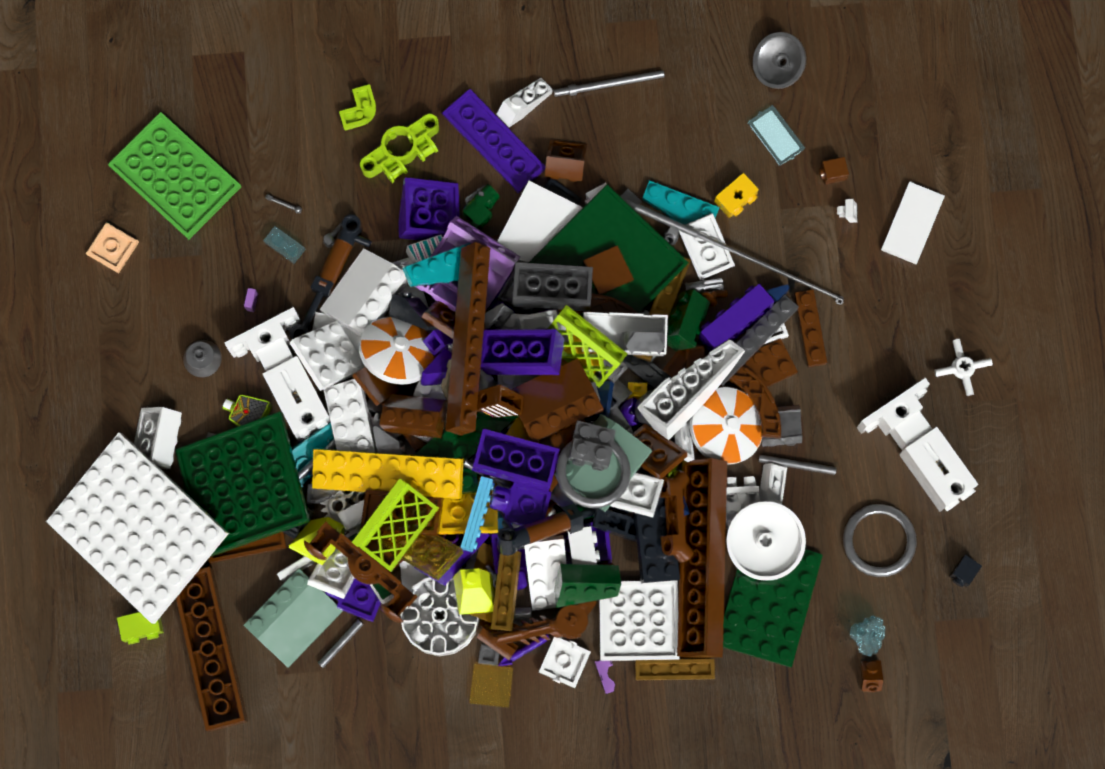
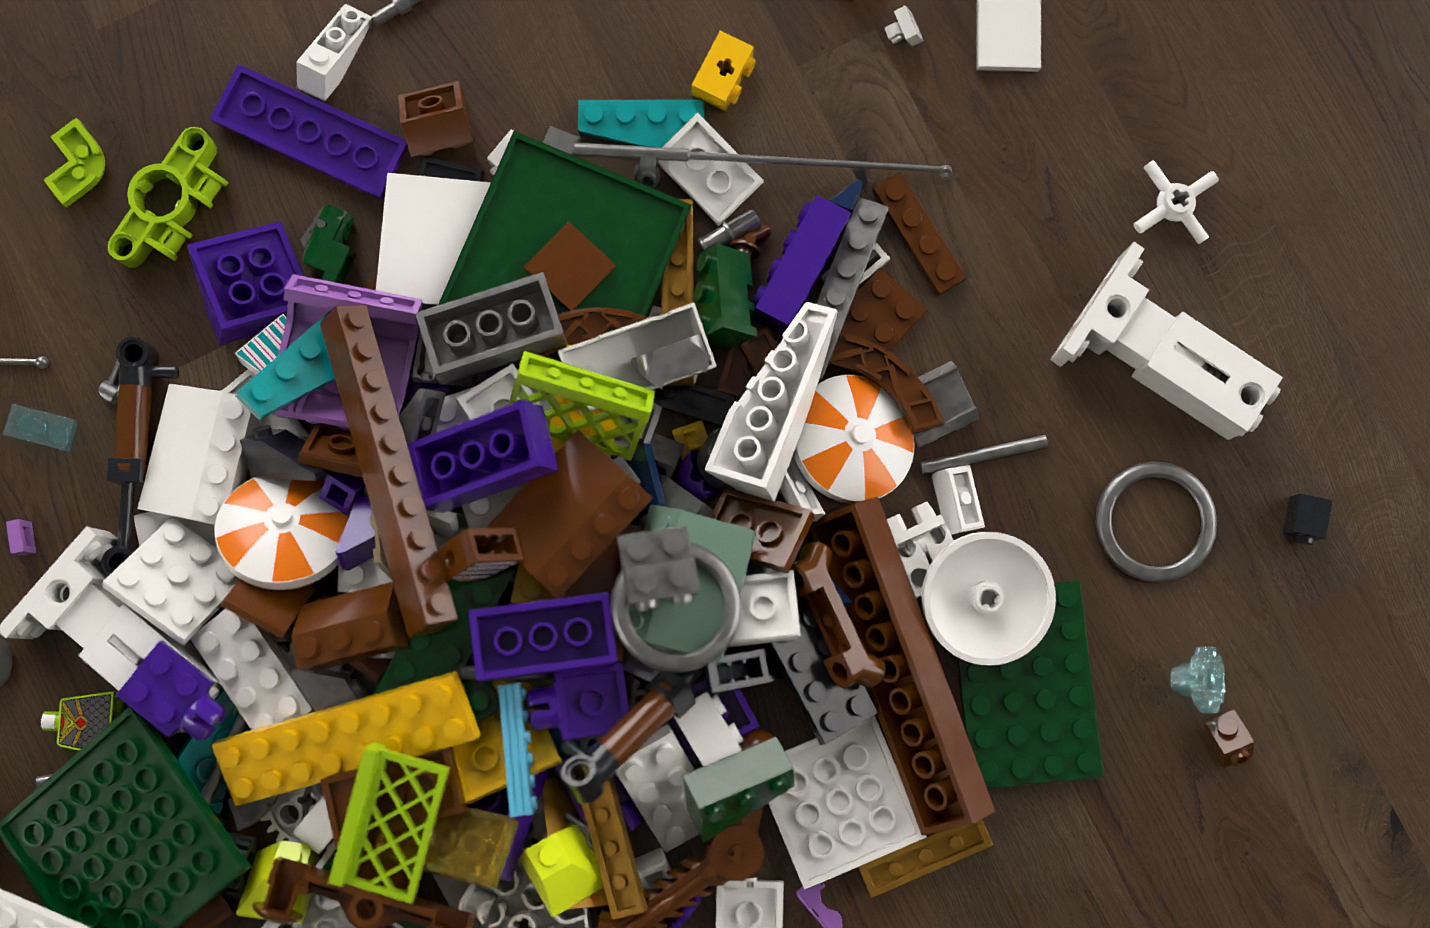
camera: 25 degrees left, 5 degrees up
(305, 413) = (173, 694): none -> dark purple plate

